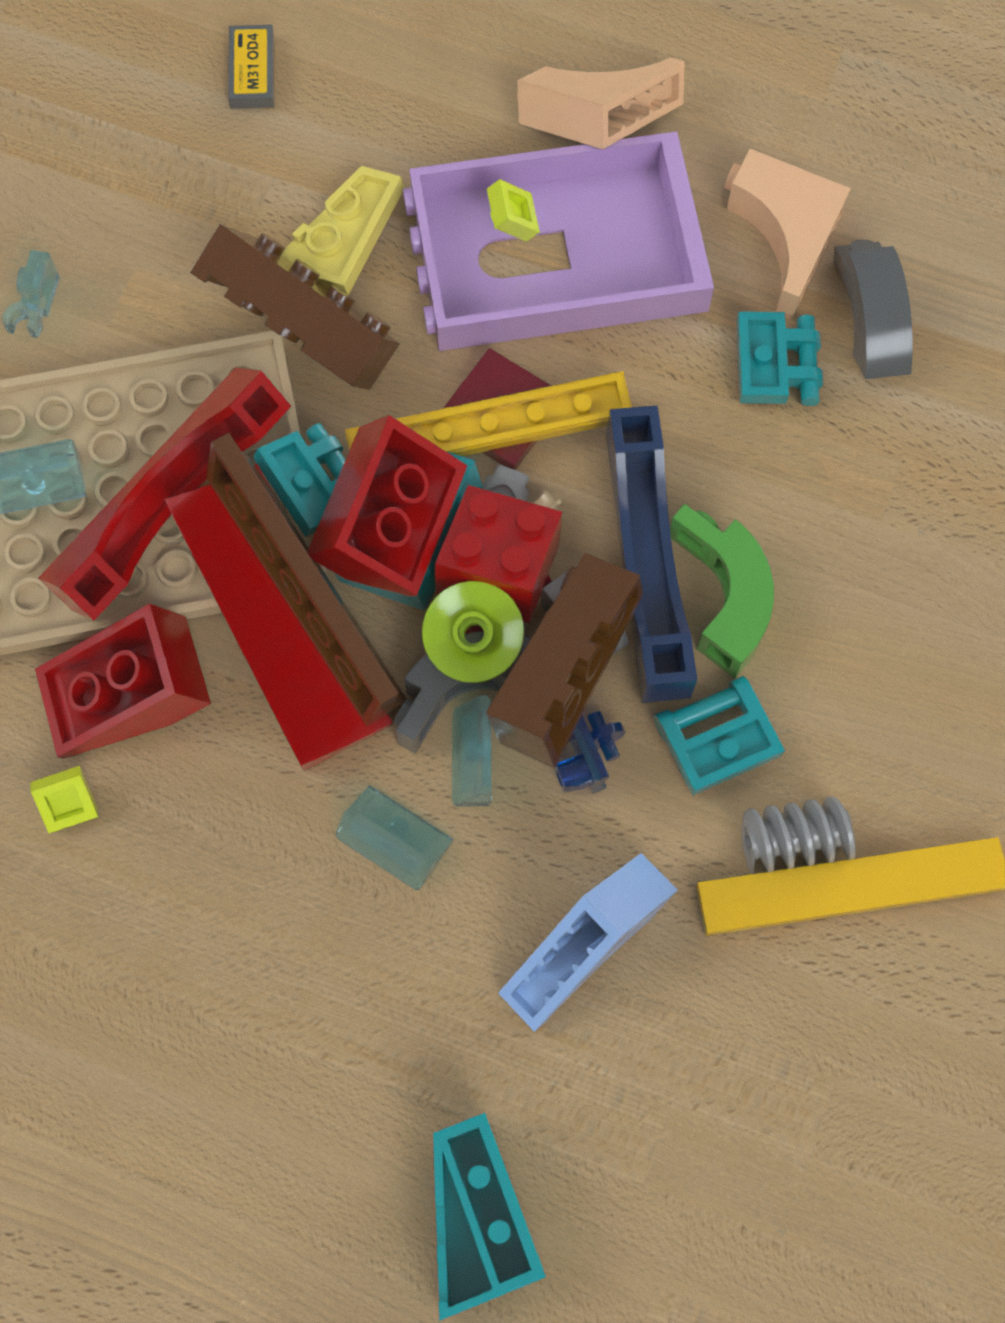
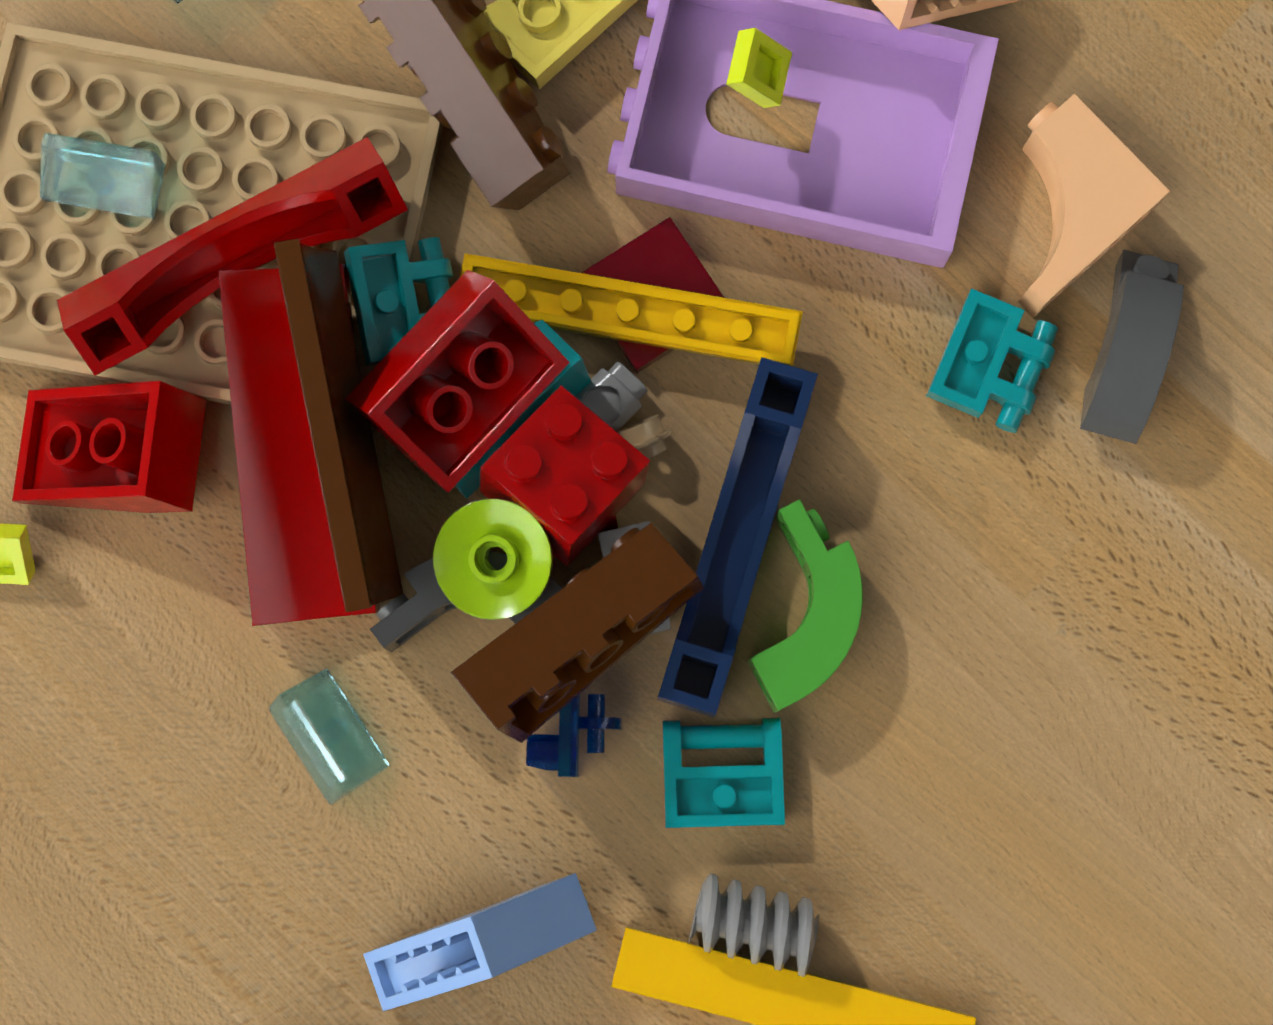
camera: 25 degrees right, 10 degrees up
(471, 754) = (441, 694): clear light blue slope -> none

